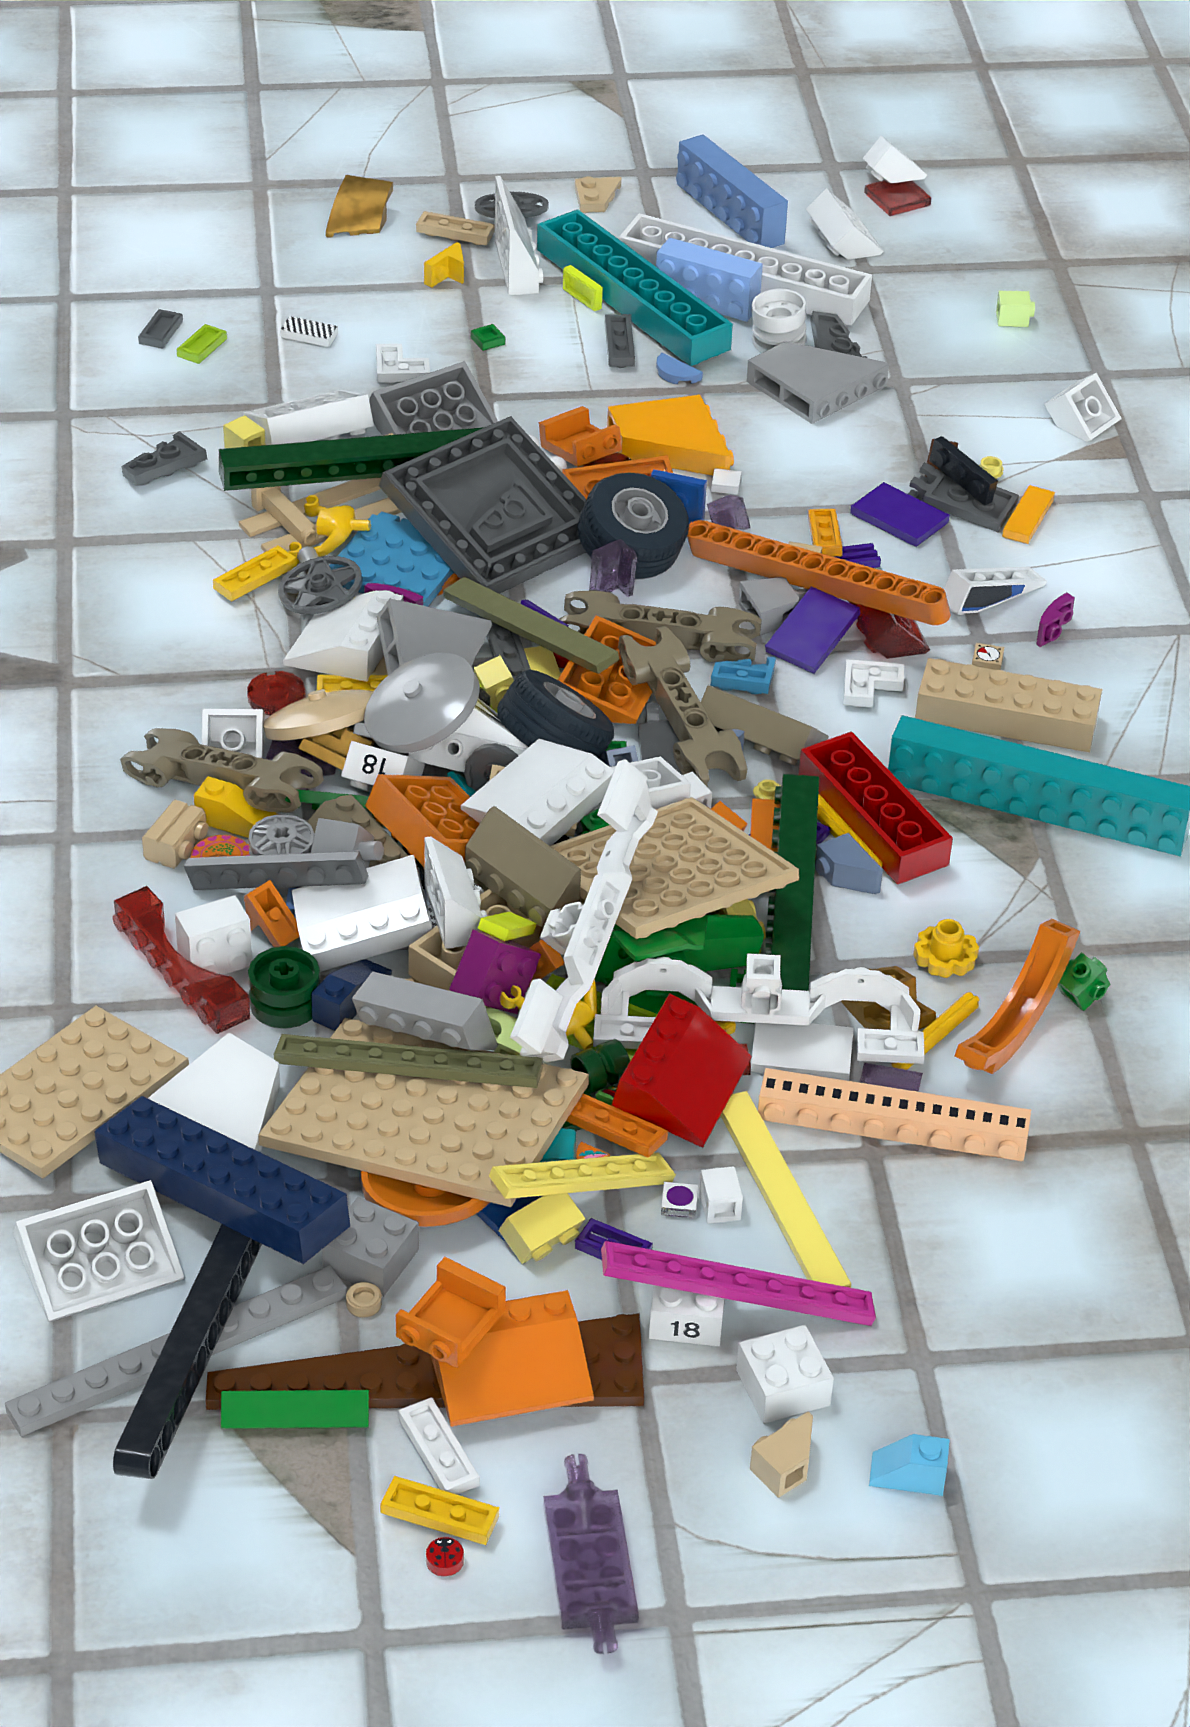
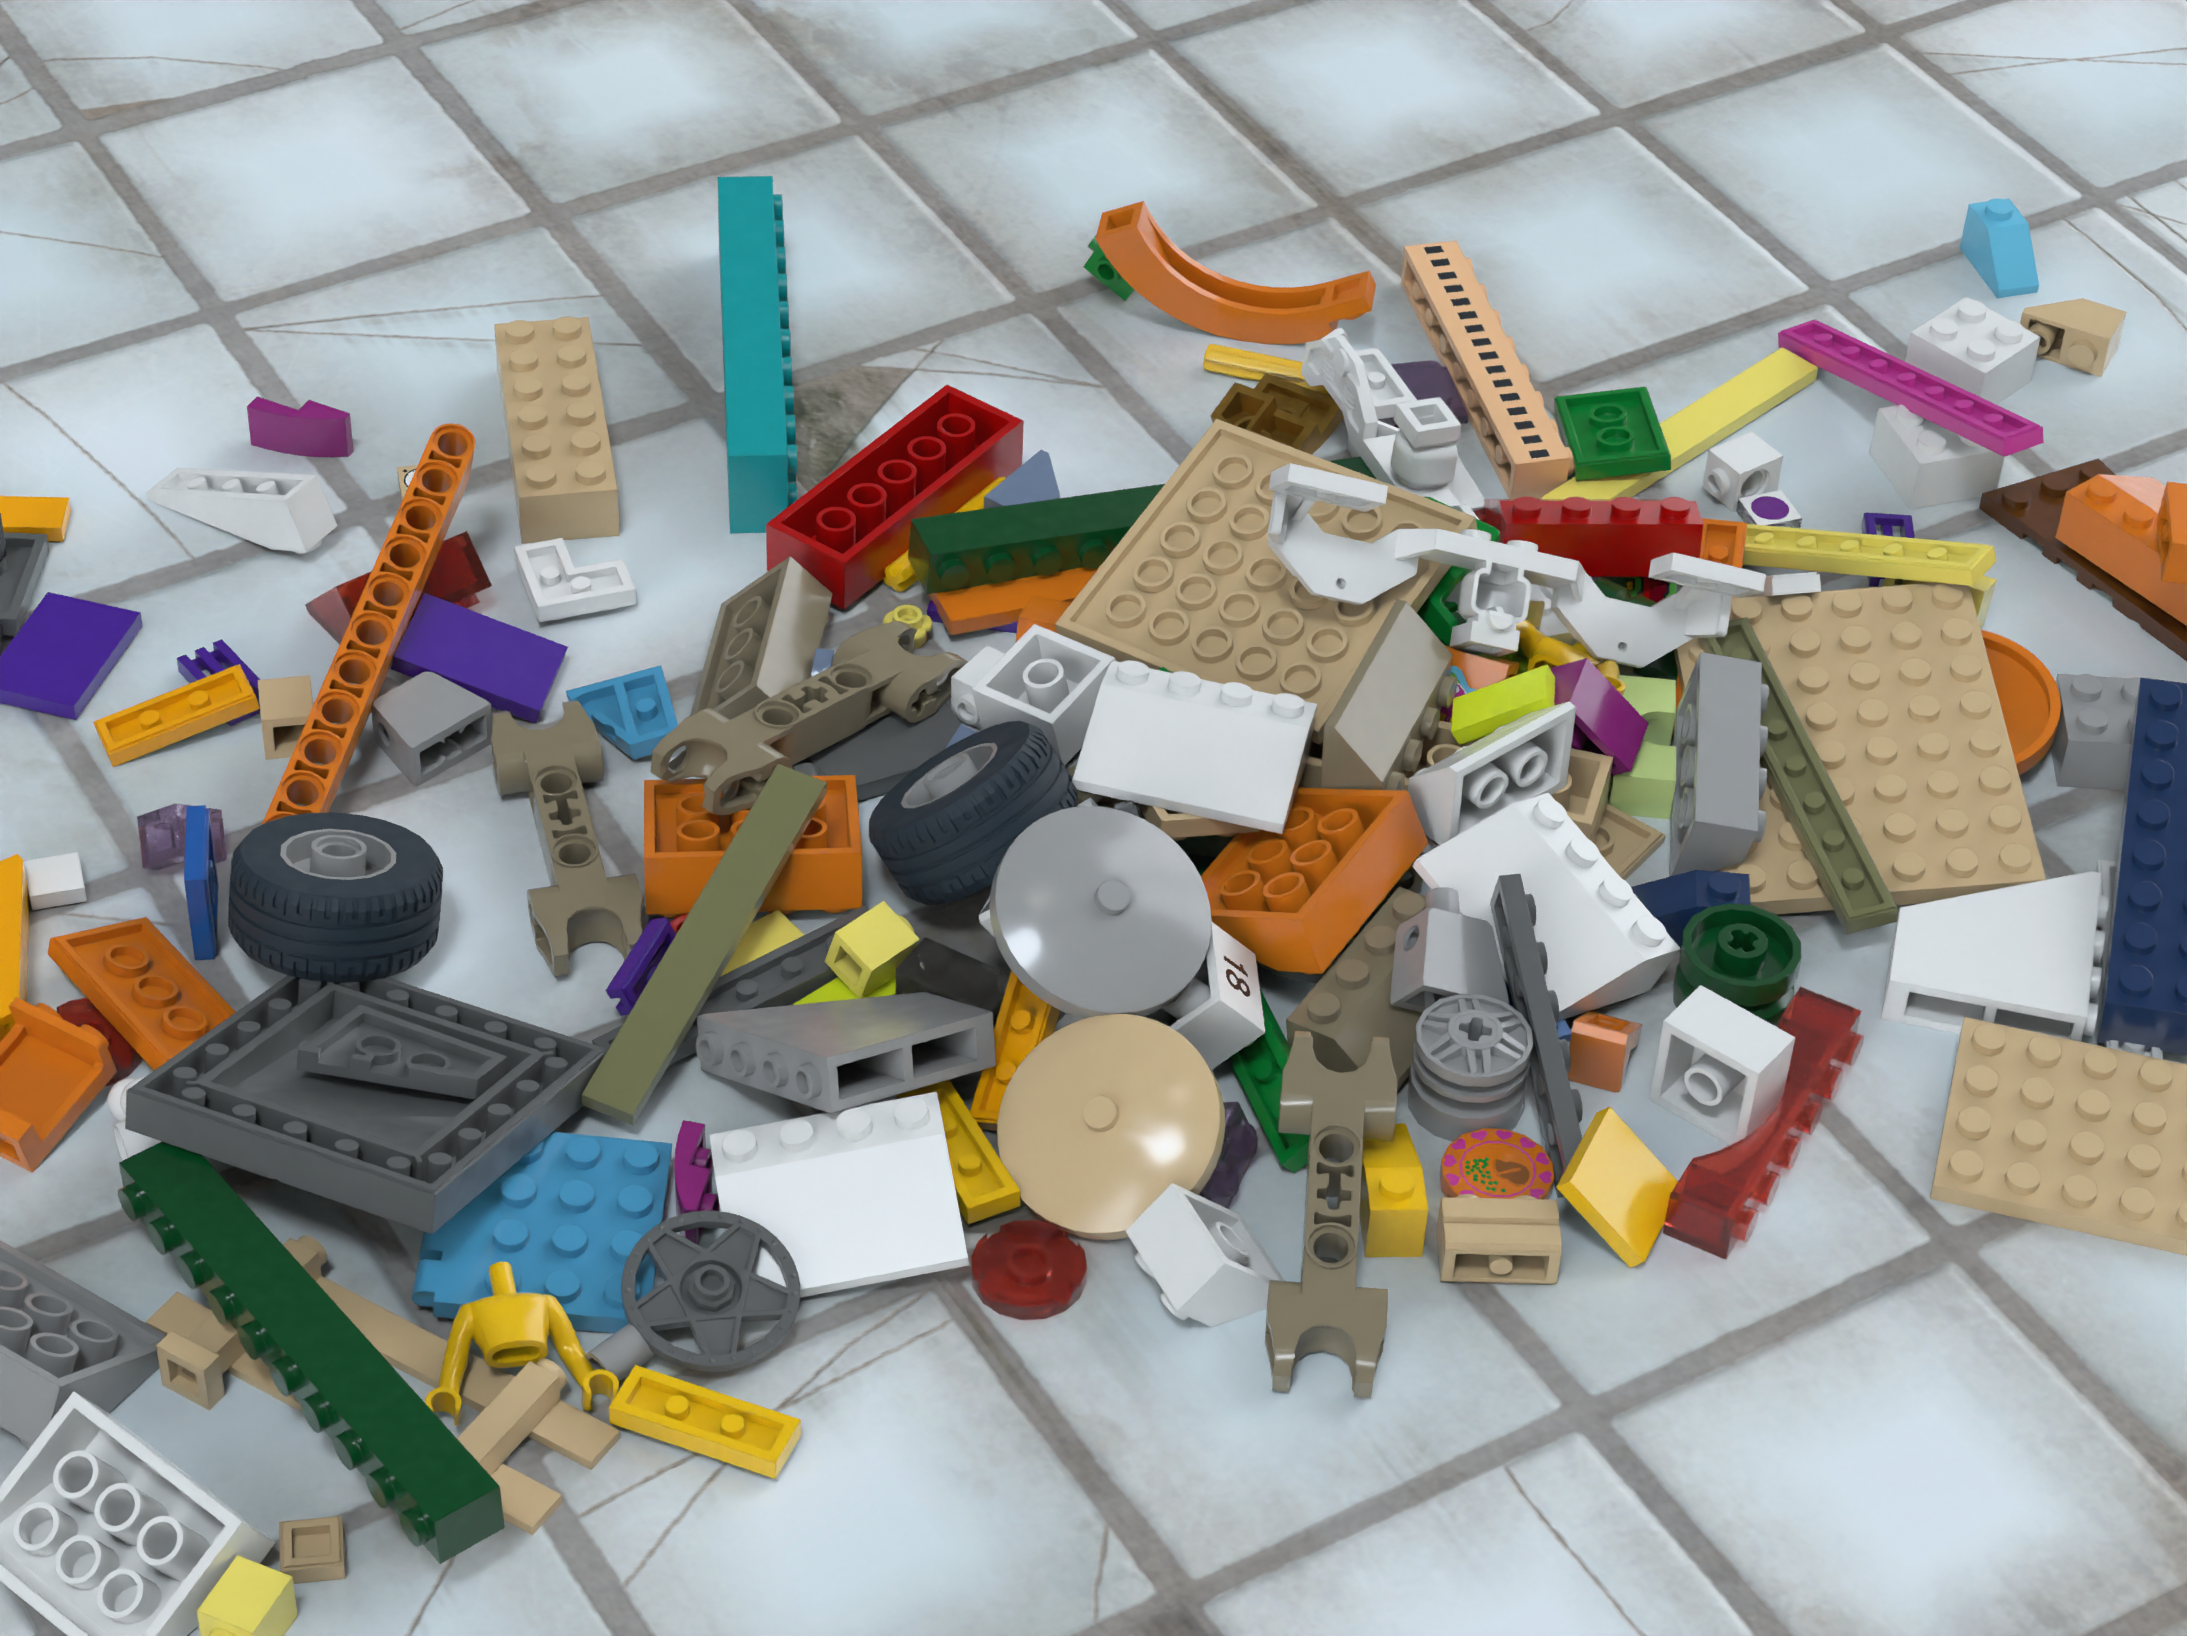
camera: 115 degrees left, 0 degrees up
(171, 876) = (1618, 1187): none -> yellow tile
(573, 1129) = (1791, 584): none -> white tile
(613, 568) = (468, 905): clear purple bracket -> none
(792, 1147) = (1612, 433): none -> green tile
(946, 949) = (1136, 386): yellow plant -> none

